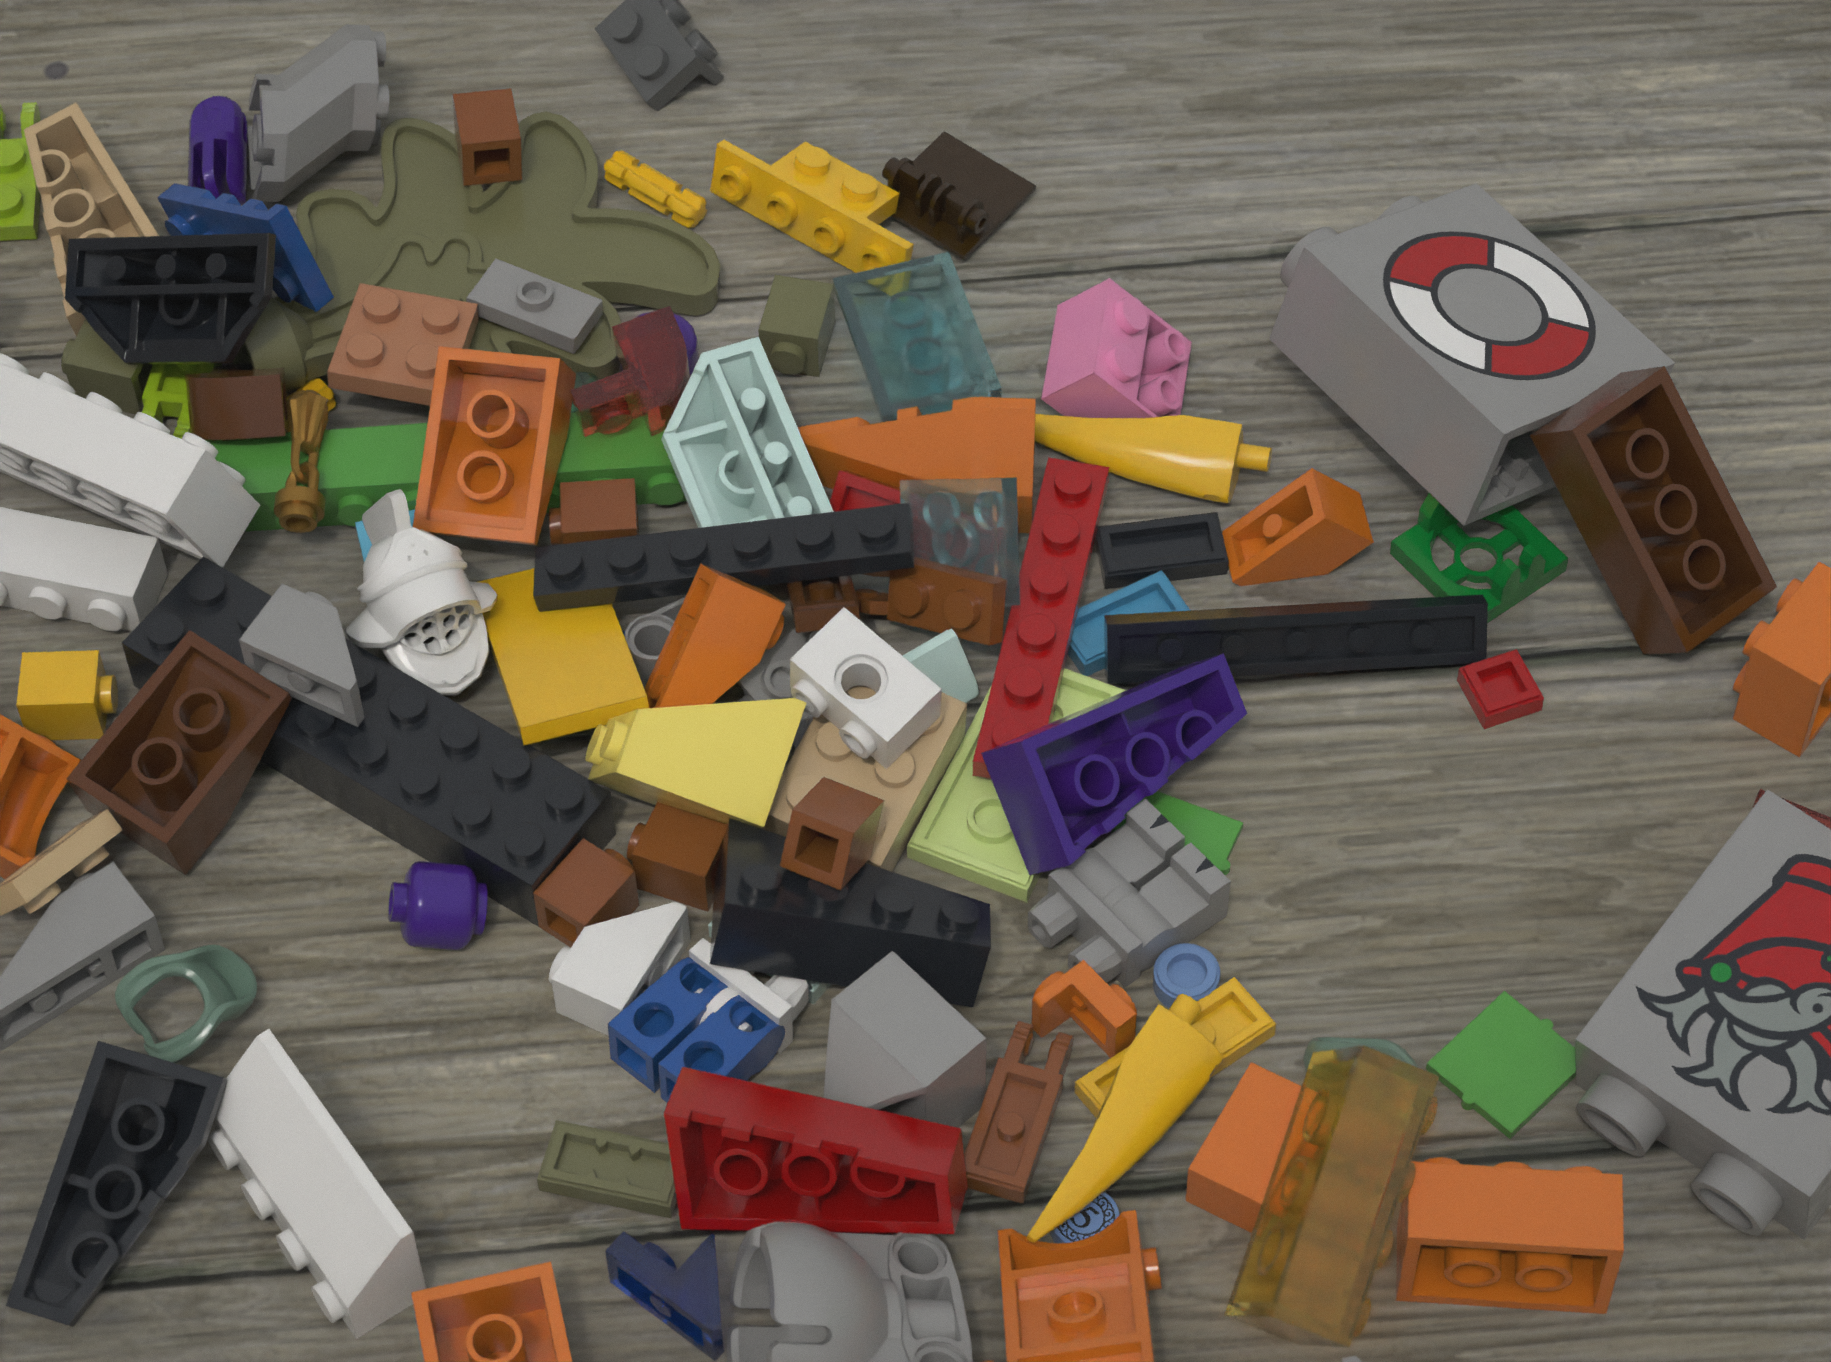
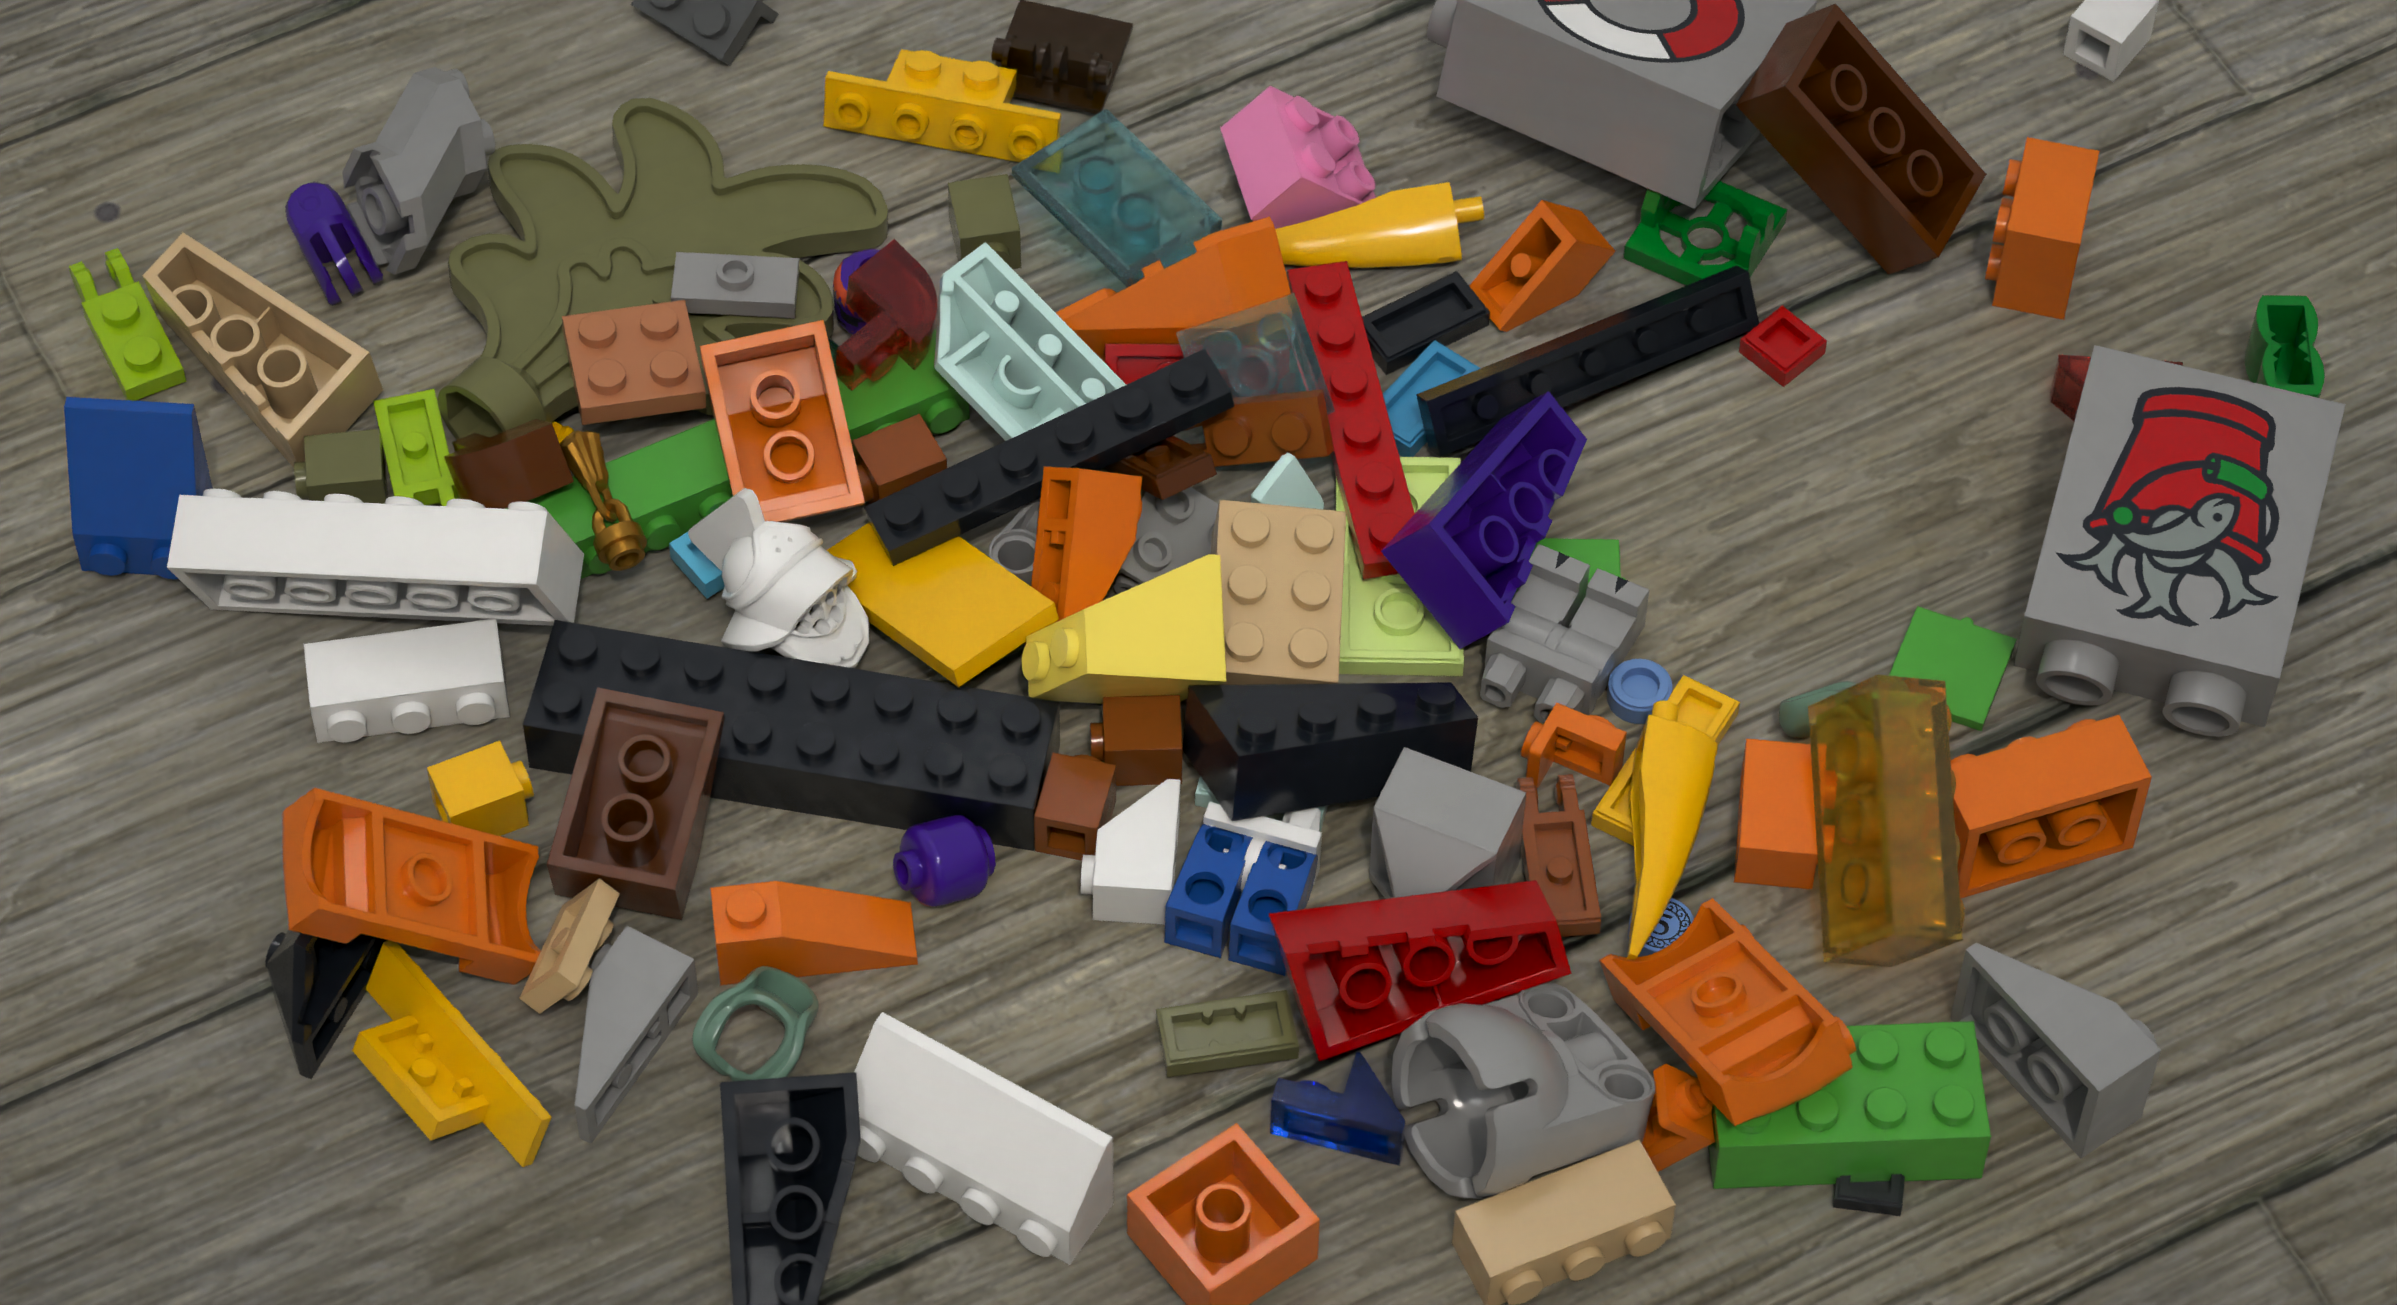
camera: 25 degrees left, 0 degrees up
(172, 294) = (405, 381): black wedge -> none
(282, 926) = (808, 930): none -> orange slope
(295, 270) = (437, 311): blue wing -> none
(305, 652) = (727, 669): light grey slope -> none
(487, 137) = (602, 139): dark orange brick -> none
(655, 189) = (773, 140): yellow axle -> none
(831, 833) = (1298, 663): dark orange brick -> none
(853, 655) = (1245, 498): white brick -> none

